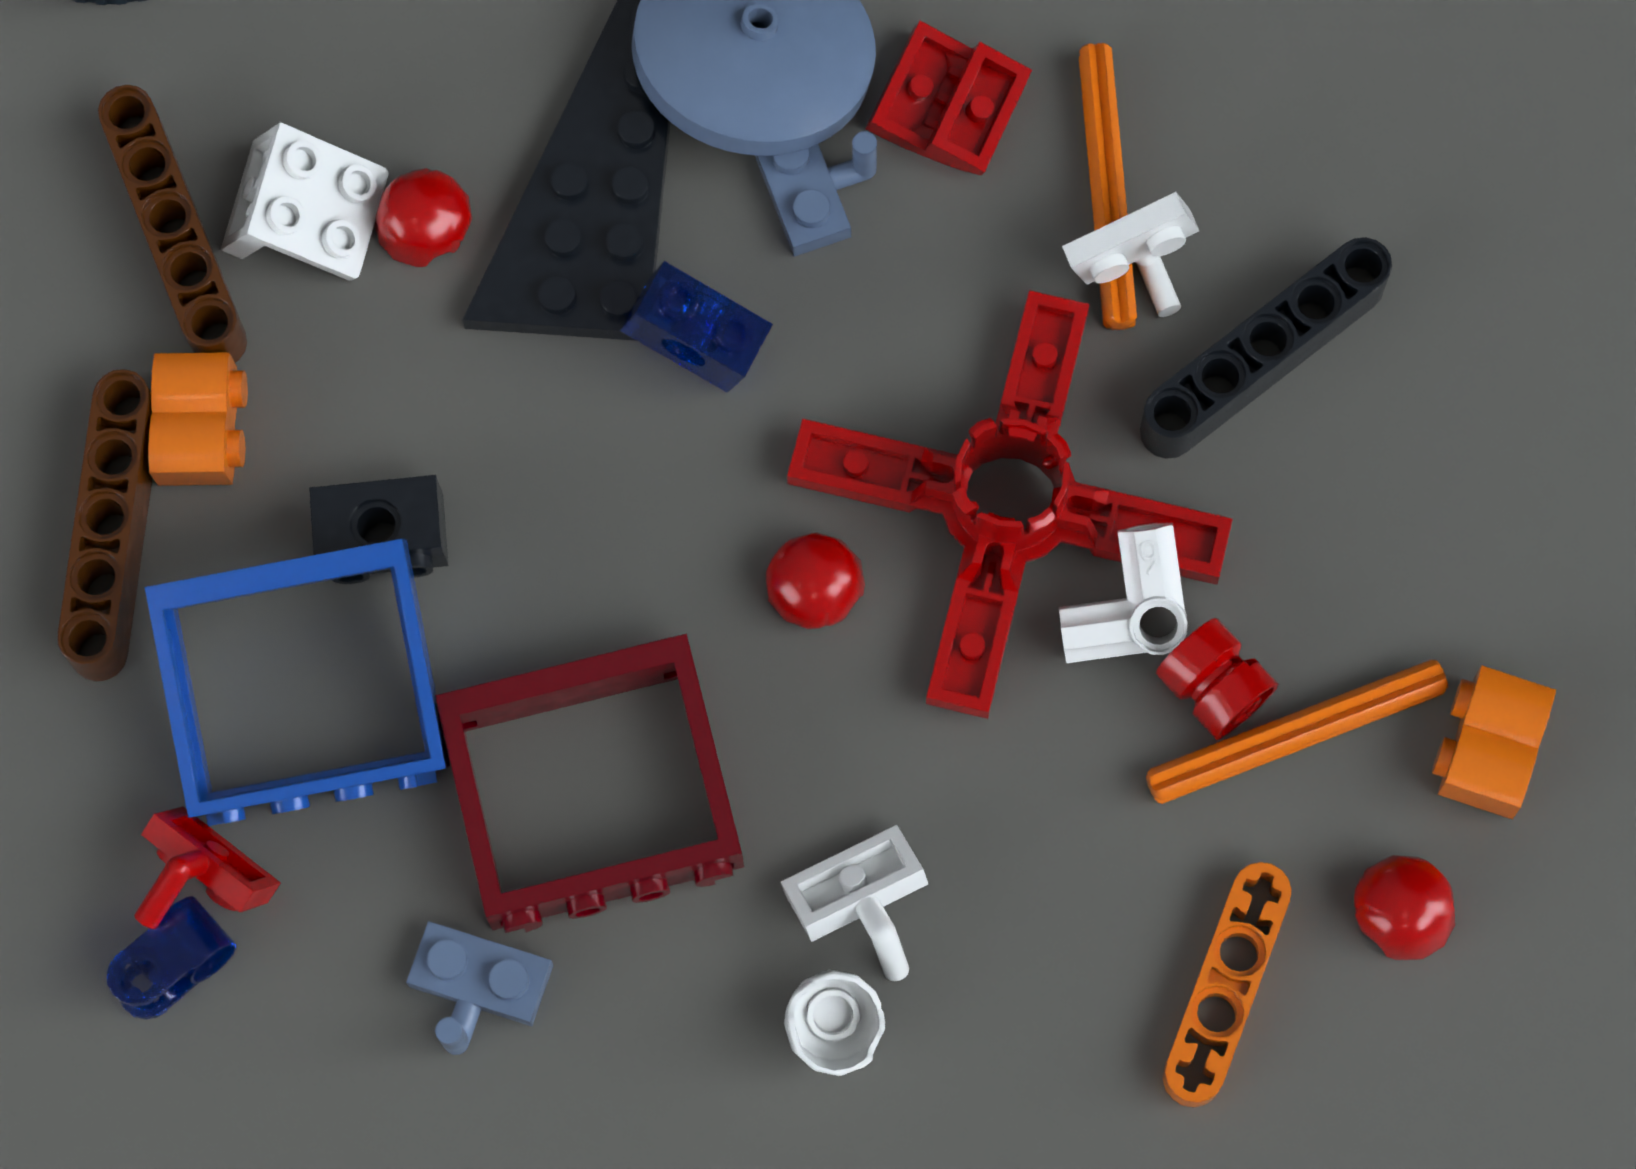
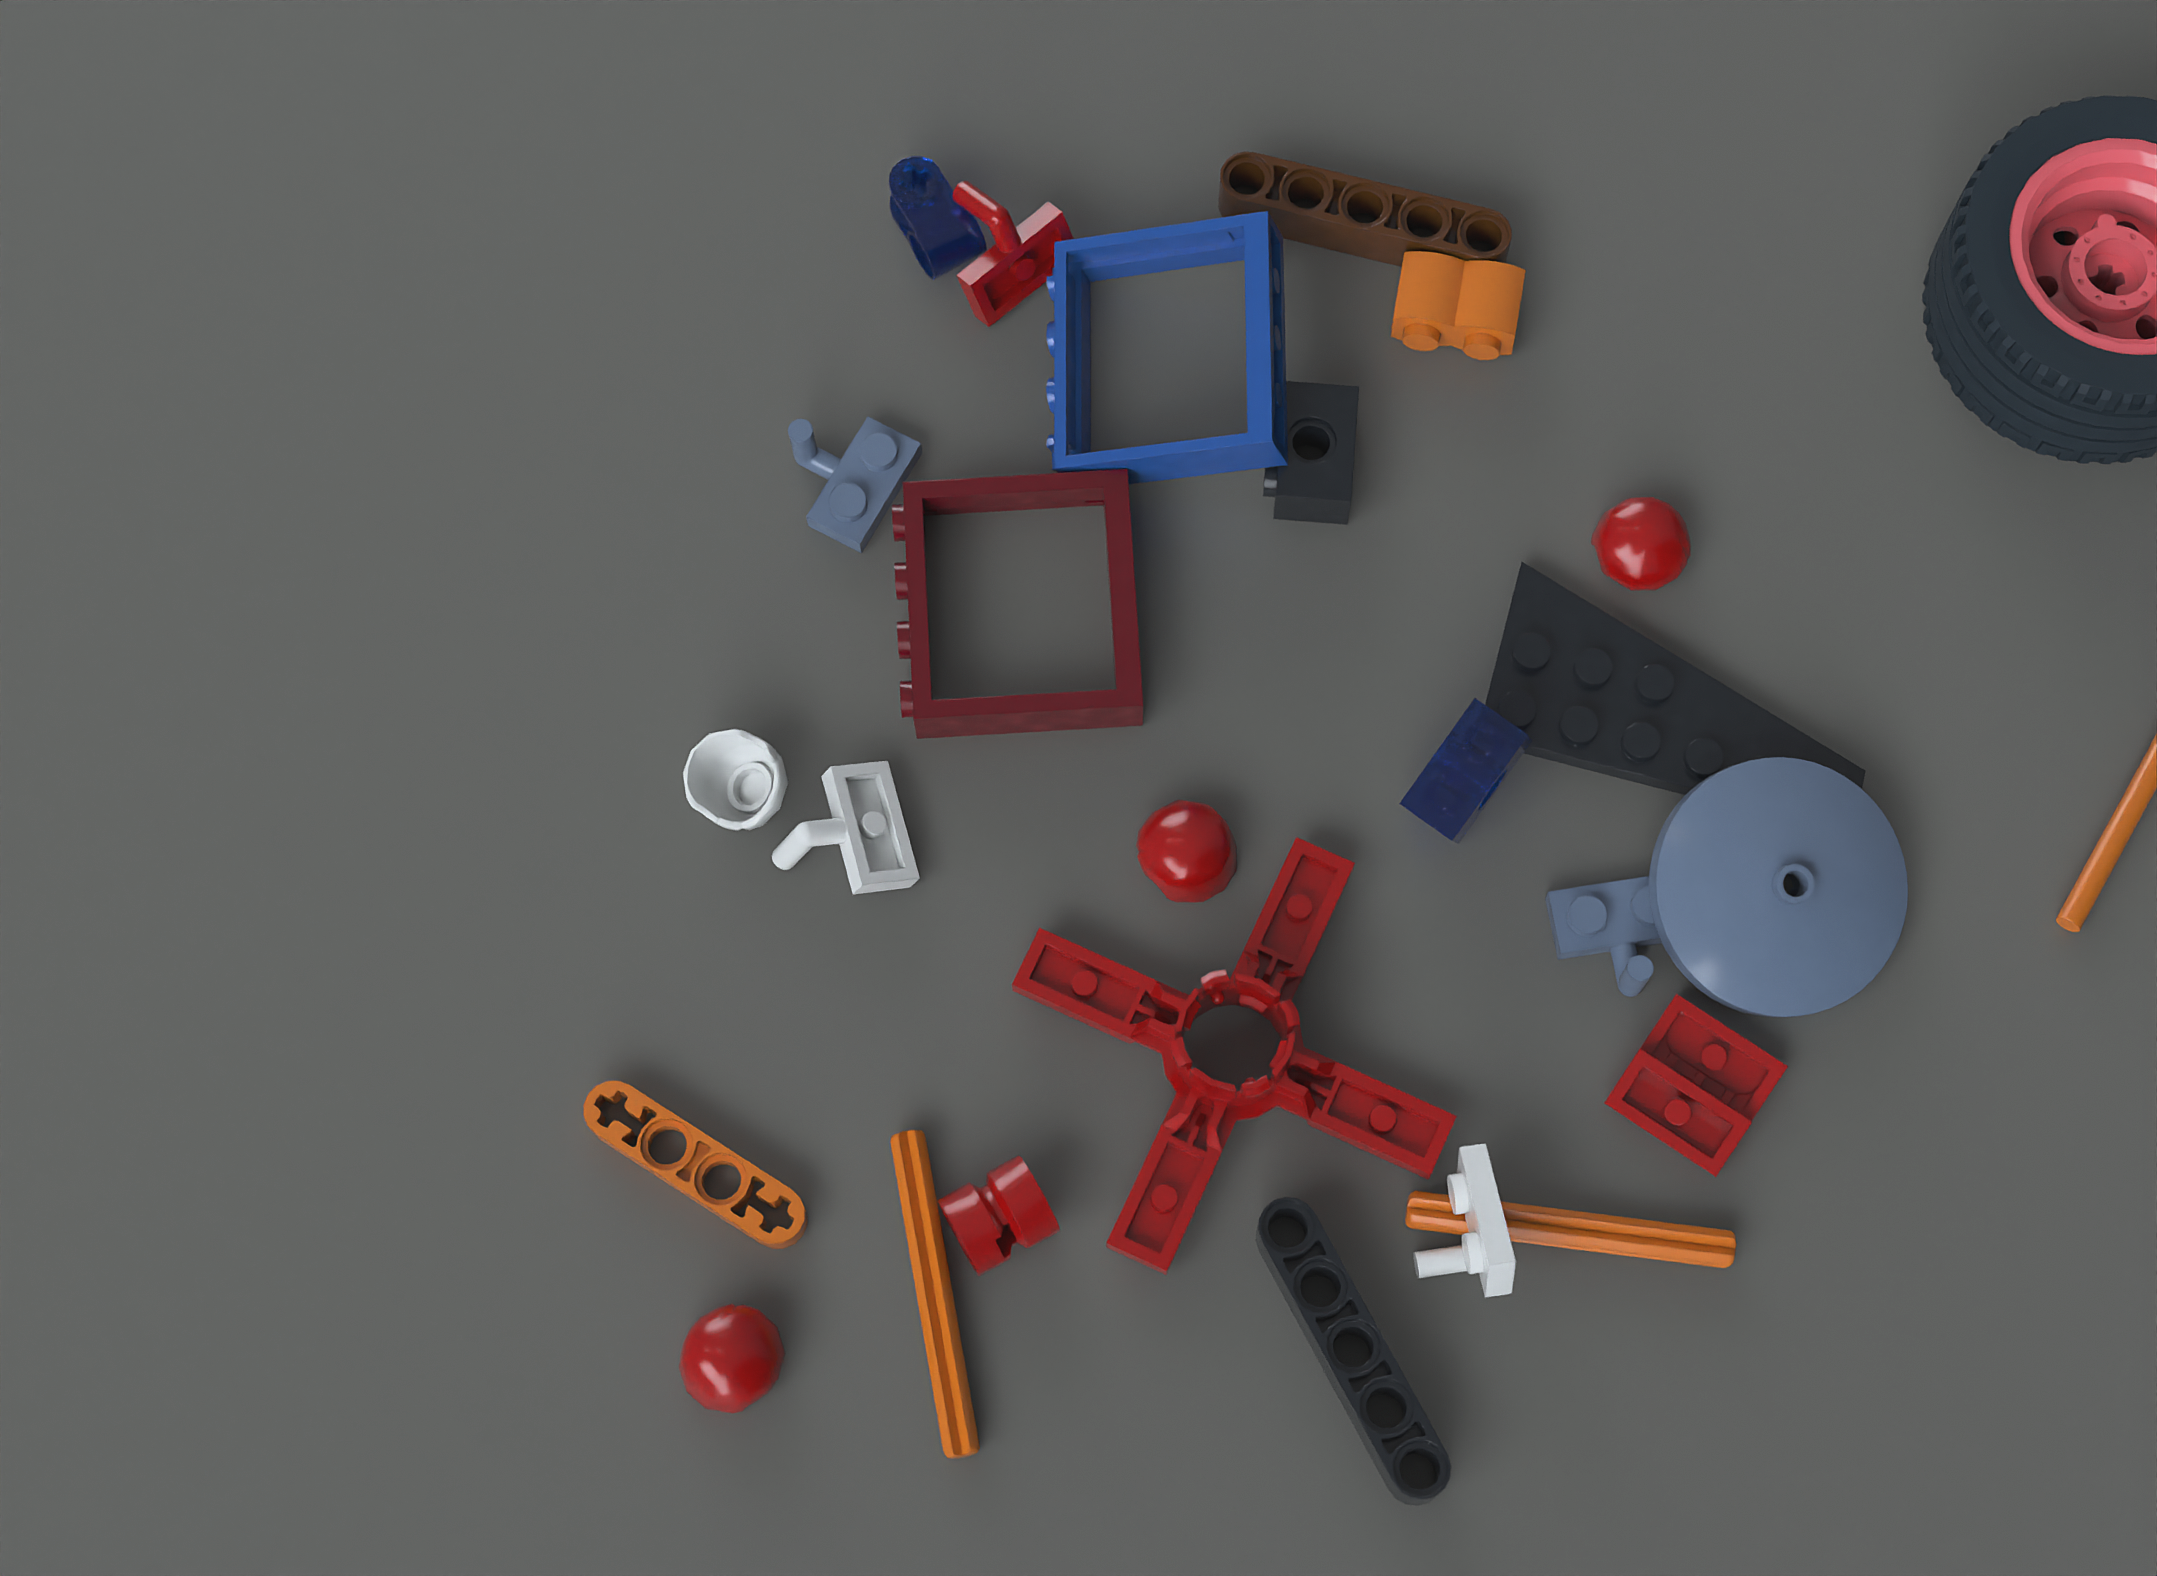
camera: 100 degrees right, 0 degrees up
(165, 200) = (1684, 288): reddish brown beam -> none
(306, 202) = (1668, 436): white bracket -> none
(1150, 581) = (1104, 1164): white piece -> none
(1494, 741) = (876, 1487): orange brick -> none

